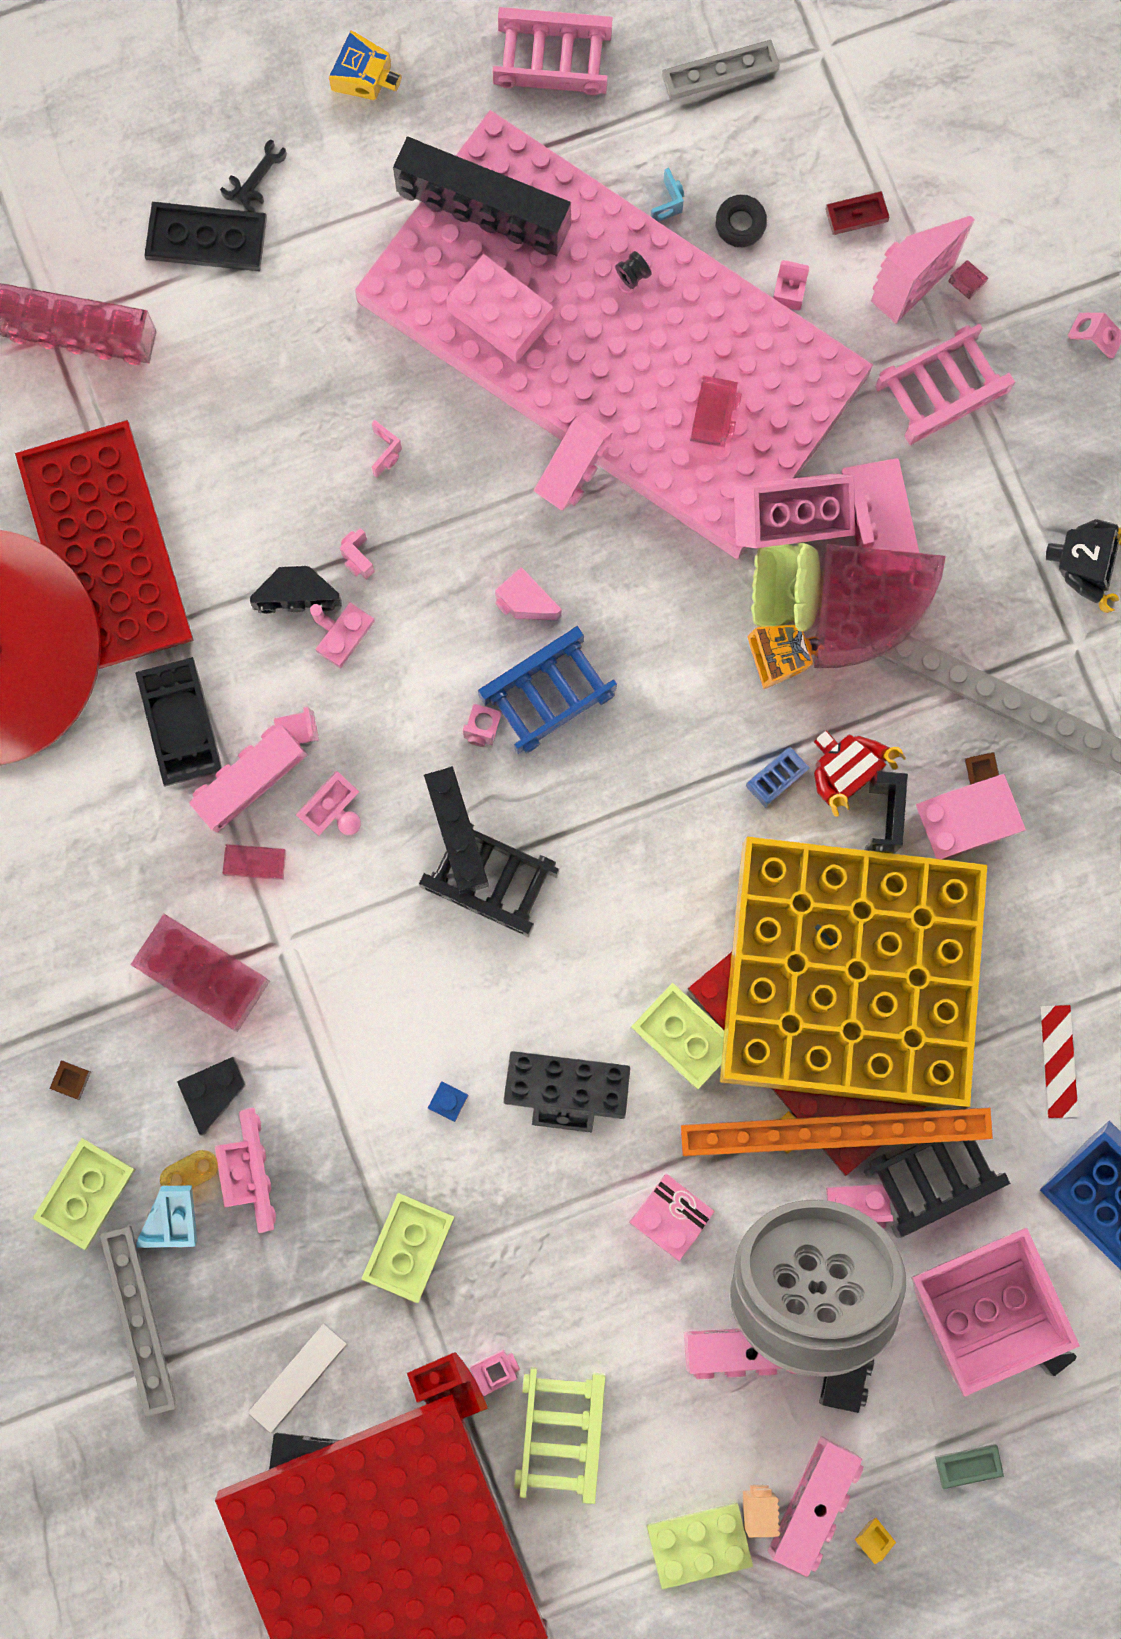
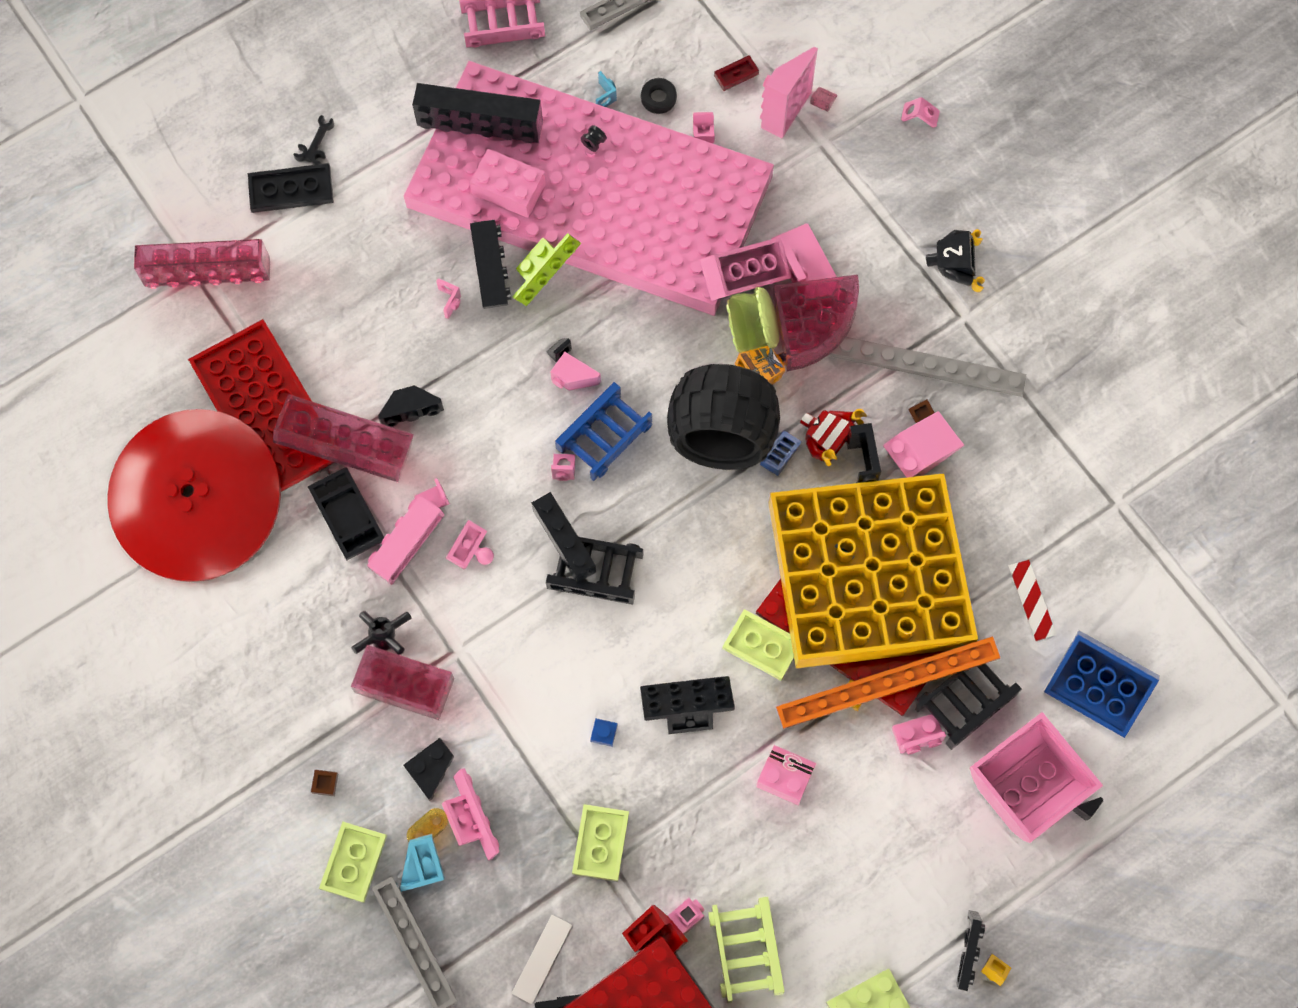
camera: 10 degrees left, 10 degrees down
(187, 899) = (381, 633): none -> black bar
(195, 618) = (342, 438): none -> clear pink brick
(254, 862) = (423, 598): clear pink plate -> none
(343, 634) = (449, 428): bright pink plate -> none
(356, 561) = (444, 373): bright pink bracket -> none
(362, 69) = (374, 56): torso -> none
(449, 417) = (489, 264): none -> black brick
(516, 558) = (559, 348): none -> black slope
(518, 436) = (541, 265): none -> lime bracket
(574, 462) = (584, 273): bright pink brick -> none
(710, 718) = (723, 417): none -> black tyre
(714, 411) = (673, 216): clear pink brick -> none
(723, 1352) = (882, 848): bright pink brick -> none
(761, 1512) = (907, 966): light nougat brick -> none
(803, 1526) = (947, 936): bright pink brick -> none
(831, 1244) = (904, 789): light grey wheel -> none
(847, 1389) = (942, 856): black brick -> none
(858, 1492) = (966, 974): none -> black wing
(969, 399) = (831, 186): bright pink fence -> none
(969, 1466) = (1049, 900): sand green tile -> none

